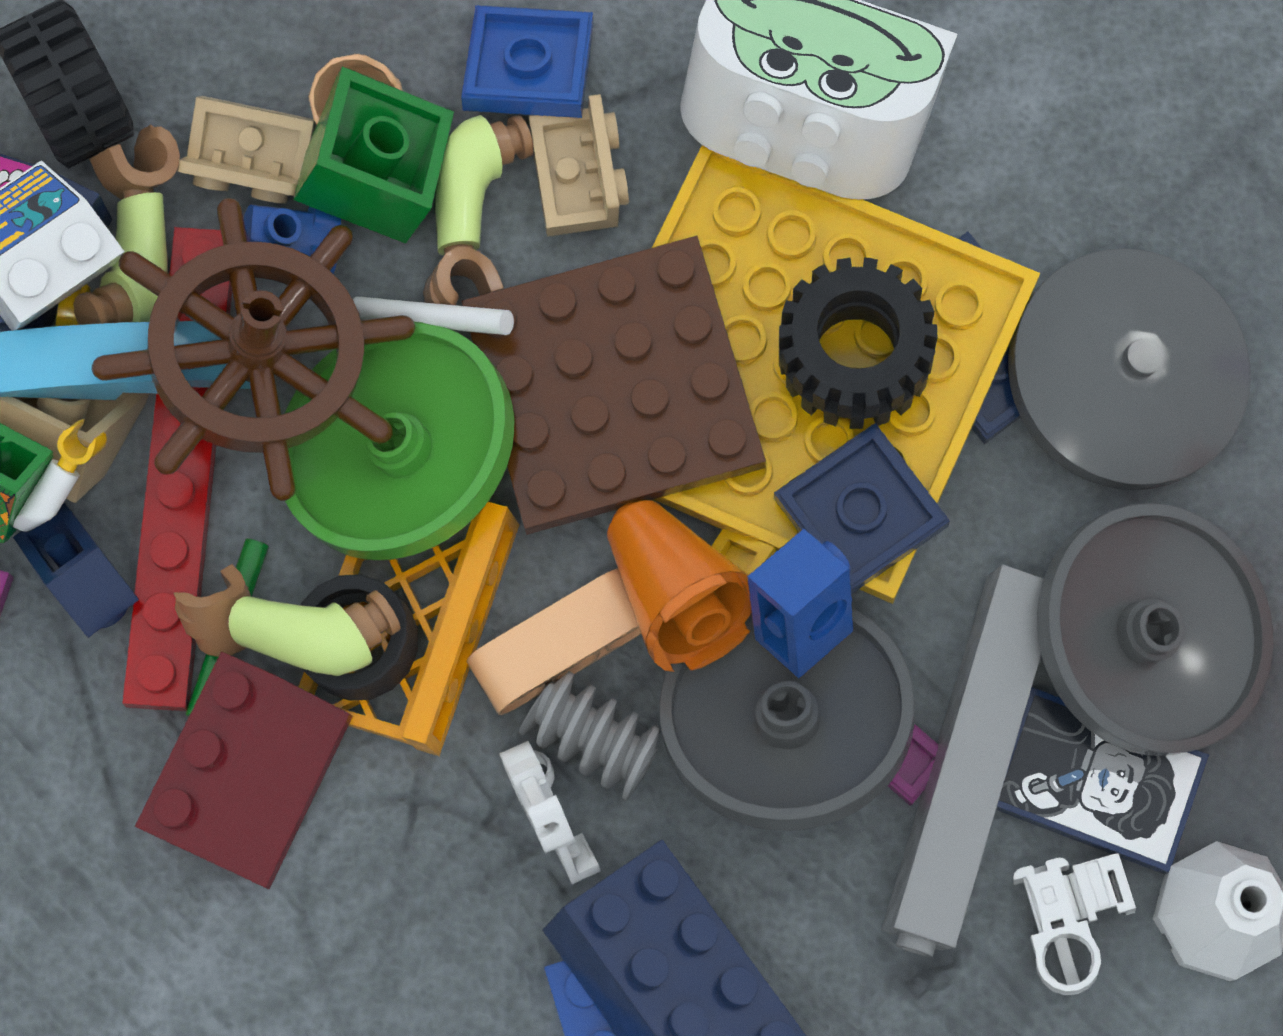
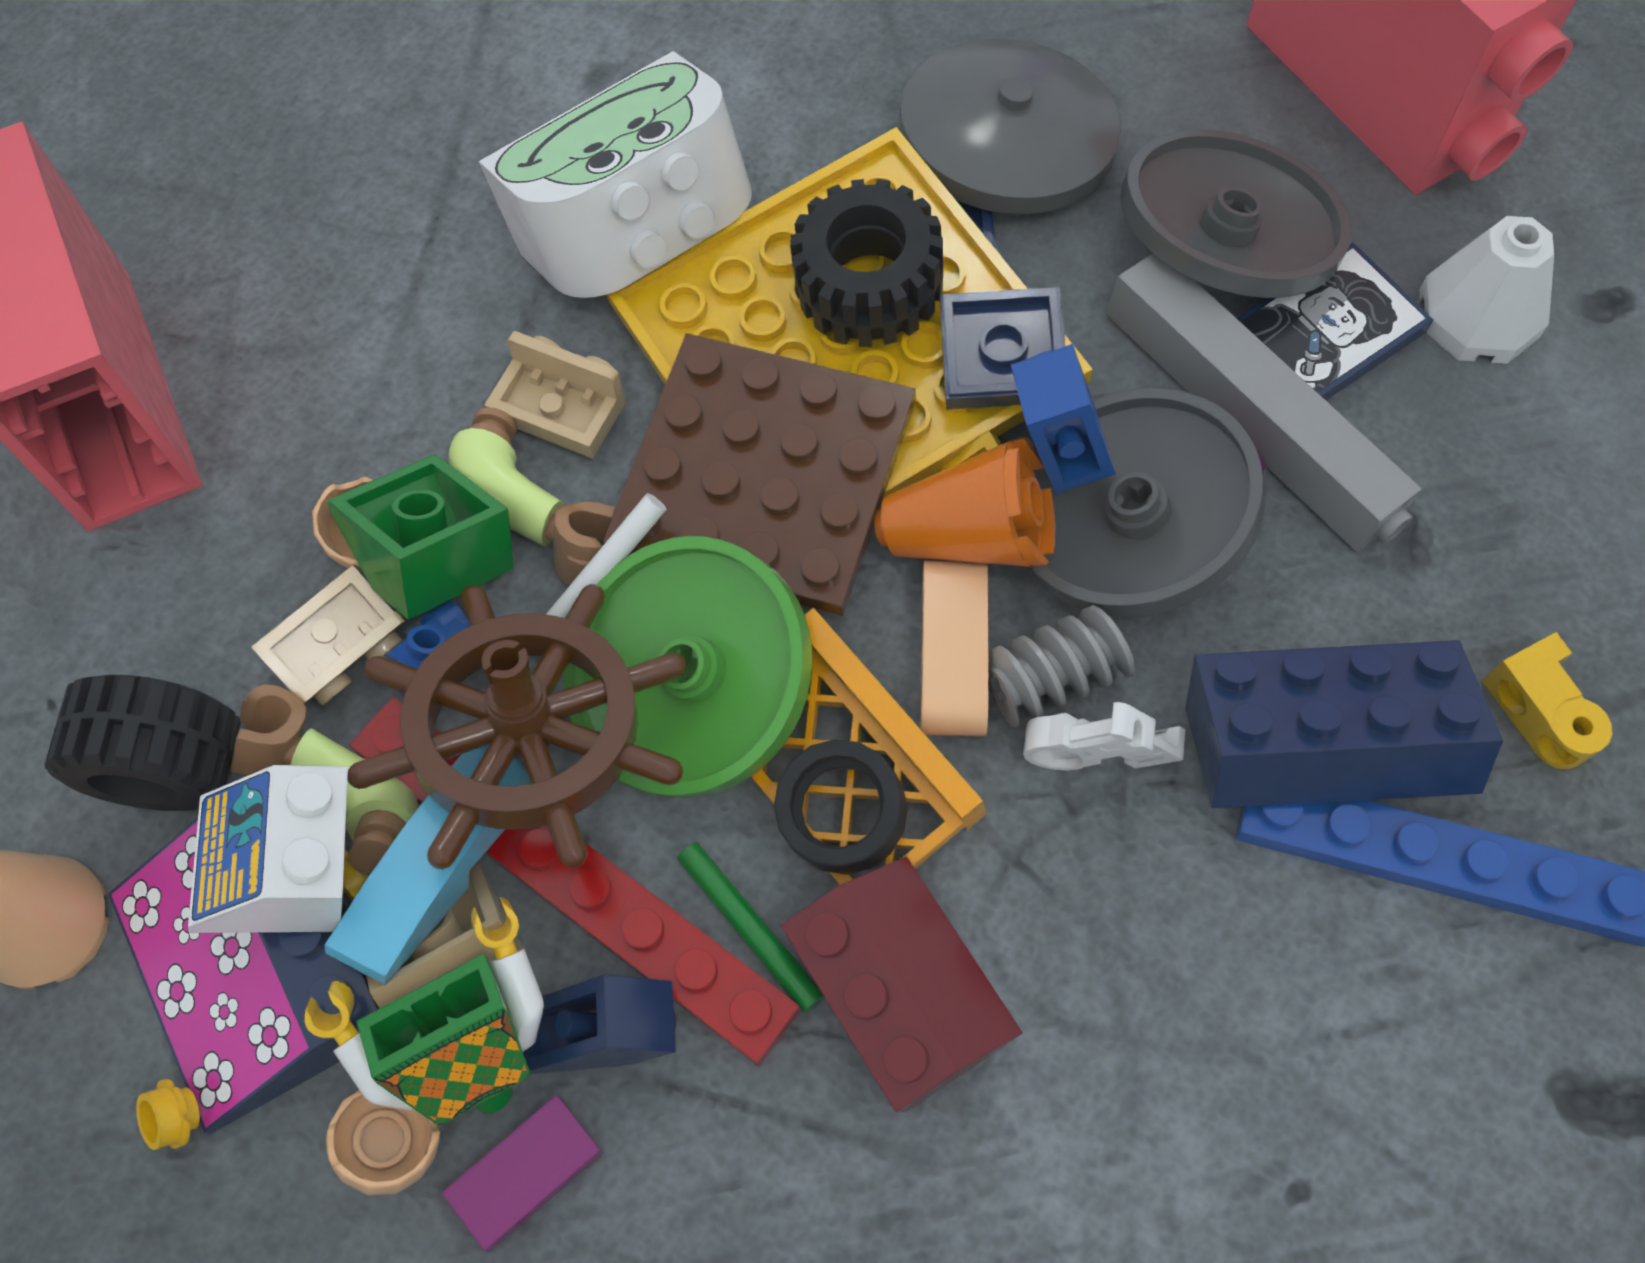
camera: 50 degrees left, 10 degrees down
(304, 636) = (822, 834): piece -> none
(527, 61) = (437, 381): blue tile -> none
(1071, 899) = (1418, 410): white piece -> none

